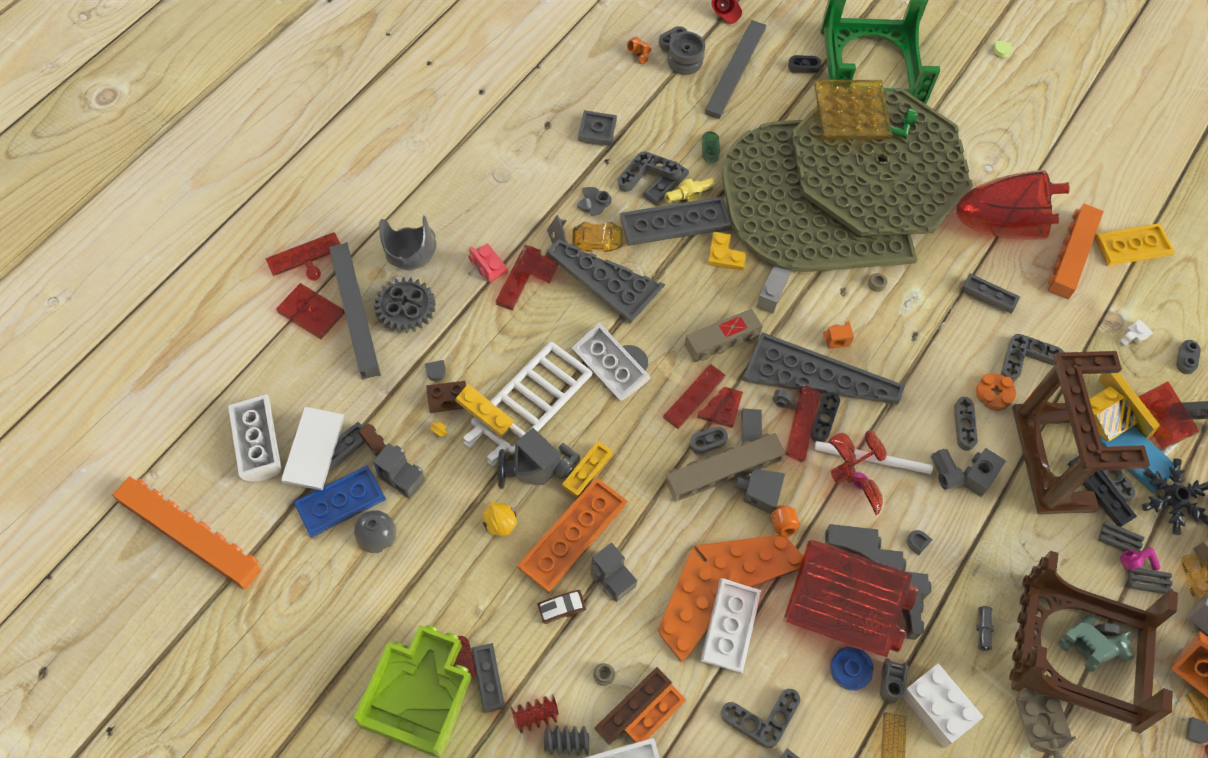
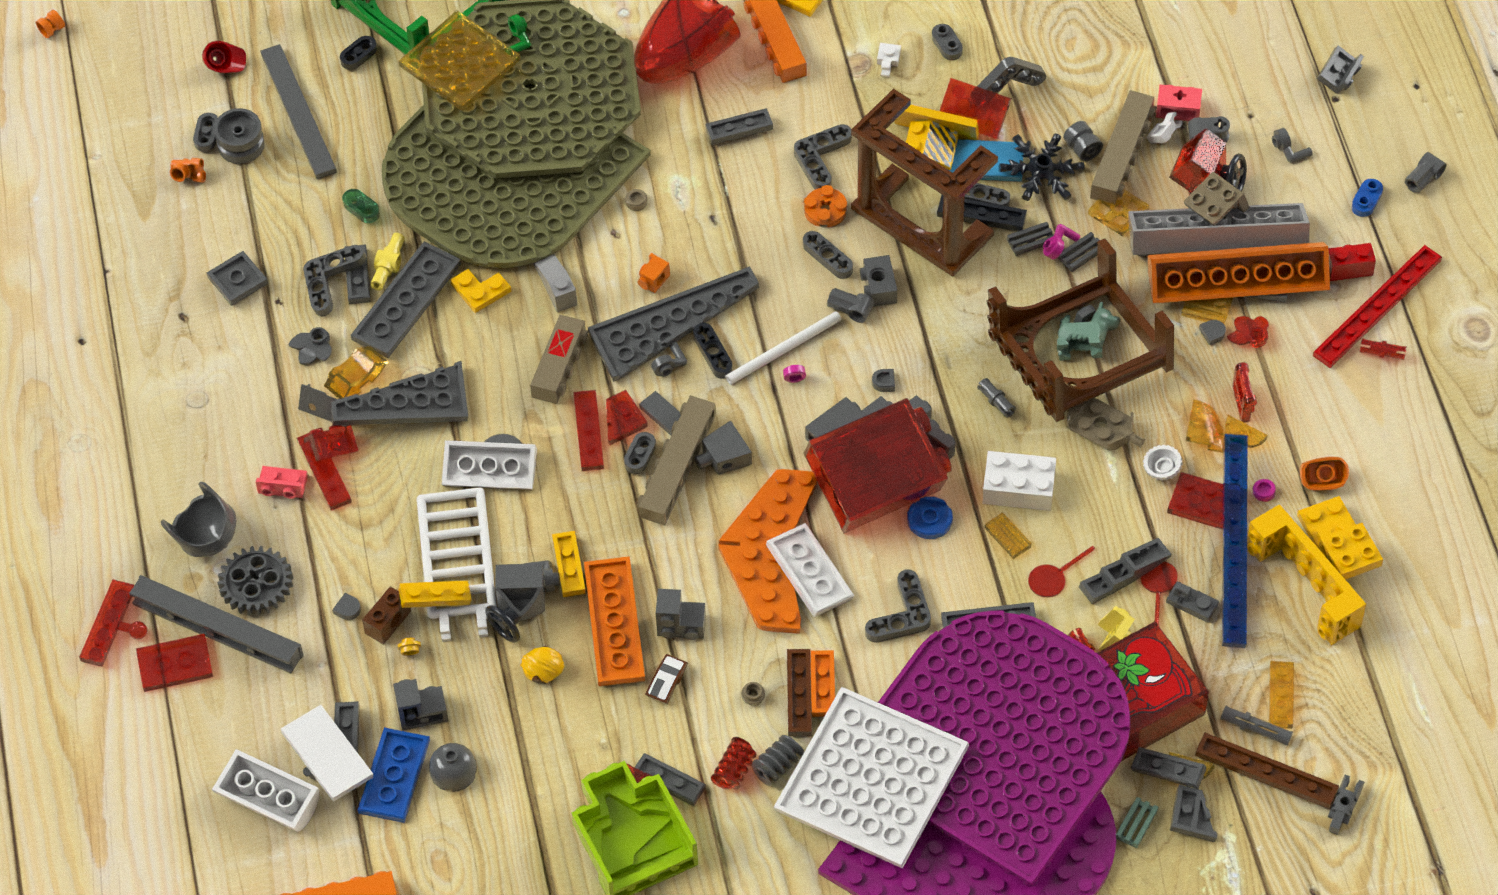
camera: 40 degrees left, 5 degrees down
(372, 439) = (370, 703): reddish brown piece -> none
(785, 520) = (768, 456): orange head -> none
(802, 423) = (700, 370): clear red tile -> none
(846, 470) = (775, 375): clear red plant -> none
(893, 676) = (968, 497): dark grey piece -> none

